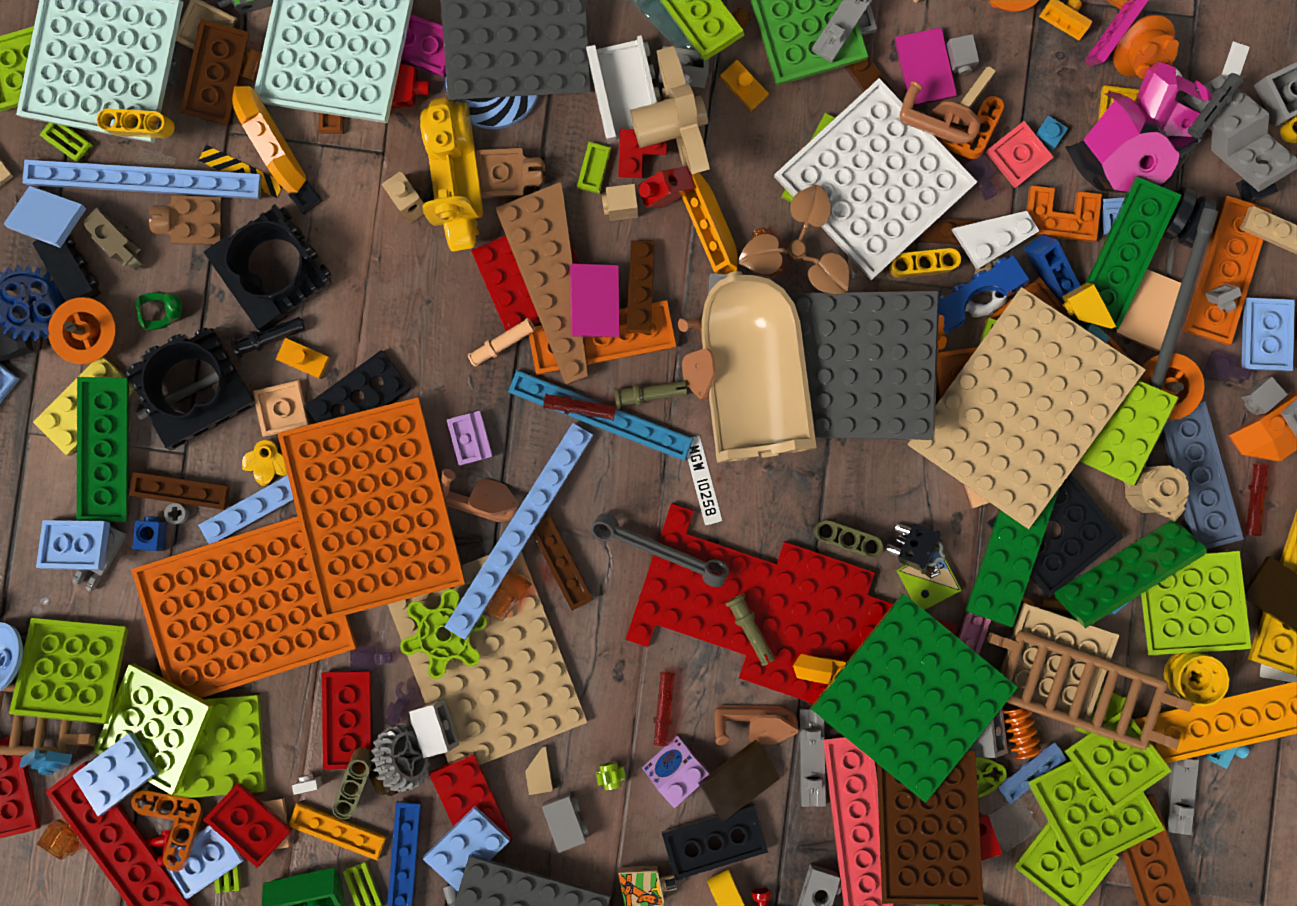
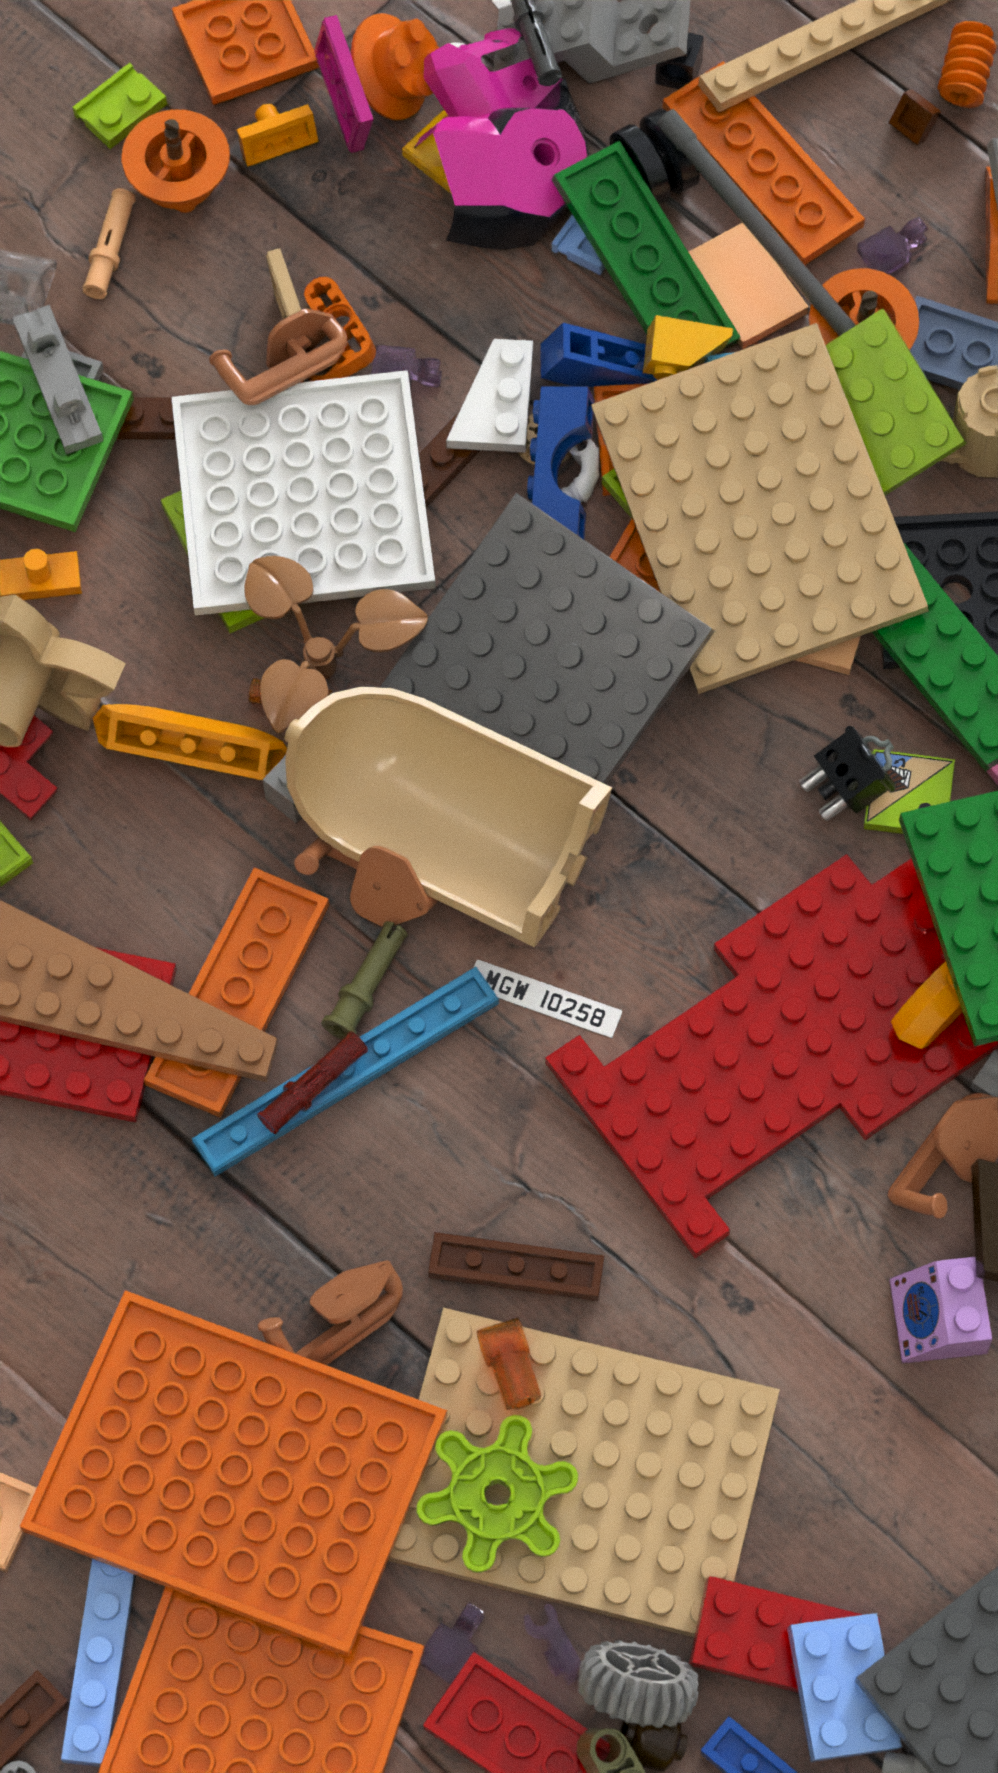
camera: 55 degrees left, 20 degrees down
(264, 466) = (51, 1597): yellow plate -> none
(360, 380) = (31, 1372): black plate -> none
(434, 728) = (627, 1607): brick -> none
(469, 438) = (239, 1270): lavender plate -> none
(494, 346) = (136, 1128): light nougat pin -> none
(518, 532) = (429, 1289): light blue plate -> none
(539, 774) = (807, 1513): tan tile -> none
(565, 822) = (905, 1520): light grey brick -> none
(594, 300) = (179, 957): dark pink tile -> none
(610, 775) = (881, 1406): lime gear -> none
(620, 202) = (71, 830): tan brick -> none
(640, 287) = (208, 888): reddish brown plate -> none
(658, 191) = (99, 761): red torso -> none
(660, 550) = (683, 1058): dark grey piece -> none
(664, 704) = (850, 1279): clear red pin -> none
(745, 618) = (785, 1060): olive pin -> none
(859, 541) = (779, 839): olive beam -> none
(926, 61) = (188, 330): dark pink tile -> none
(935, 260) = (465, 494): yellow beam -> none
(962, 54) = (222, 284): light grey brick -> none
(1019, 154) = (411, 304): coral plate -> none
(1051, 132) = (412, 250): dark azure plate -> none
(1078, 226) = (562, 298): orange plate -> none
(1224, 296) = (794, 183): light grey tile -> none
(1263, 396) = (963, 225): light grey brick -> none
(1268, 334) = (885, 169): light blue plate -> none

